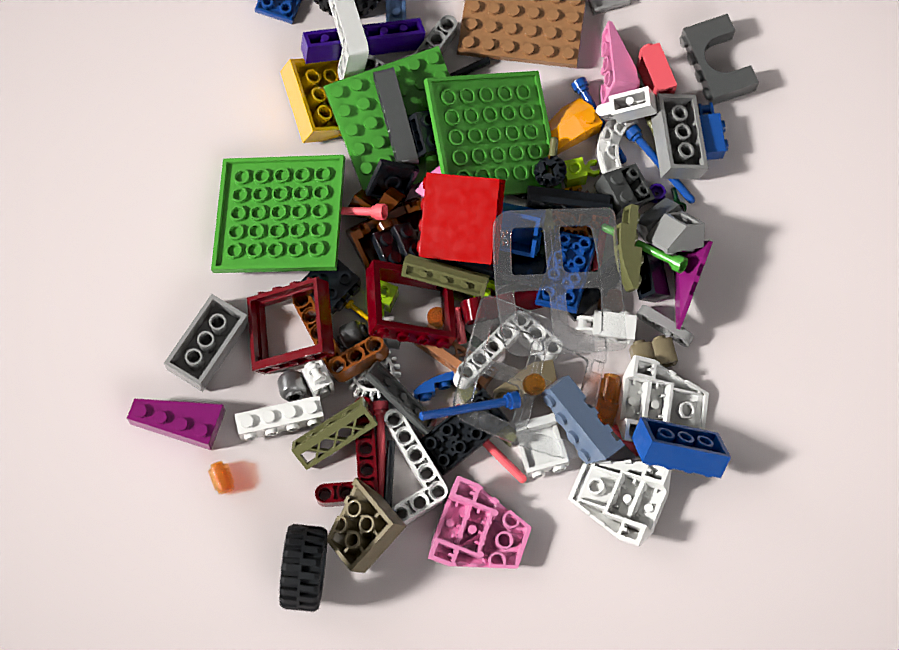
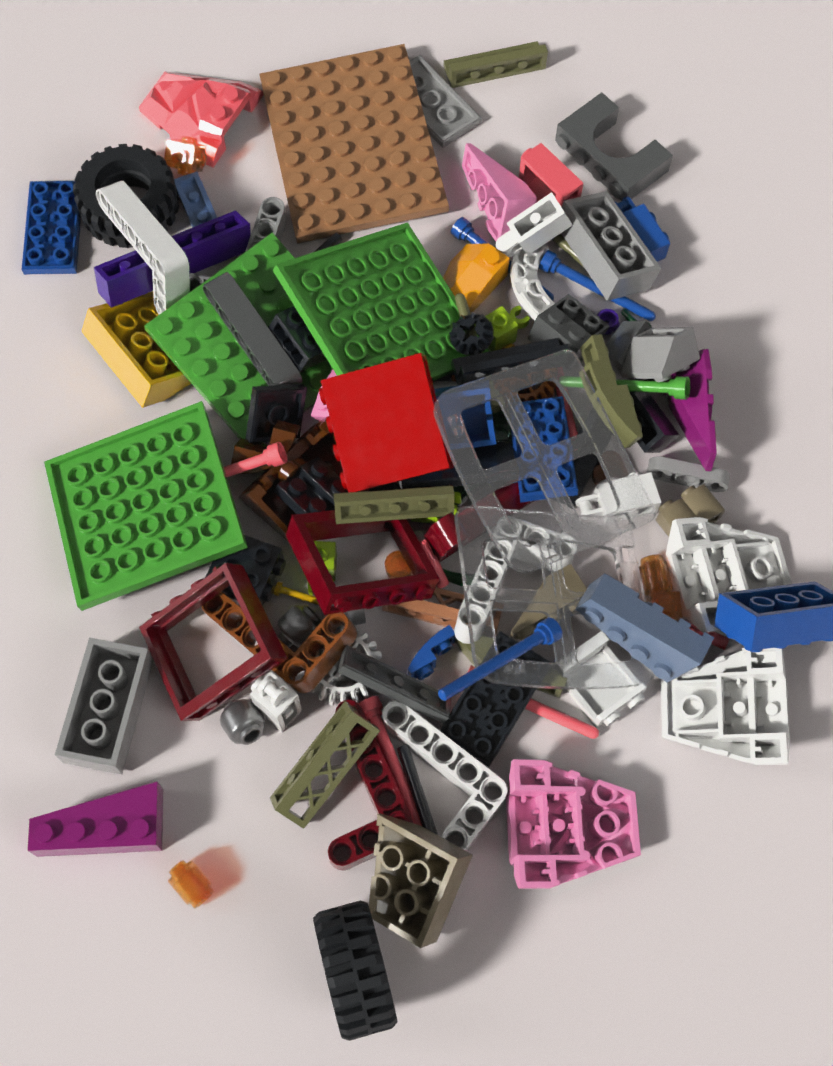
camera: 20 degrees left, 5 degrees down
(279, 418) = (241, 771): white brick -> none
(534, 384) = (564, 602): clear orange tile -> none

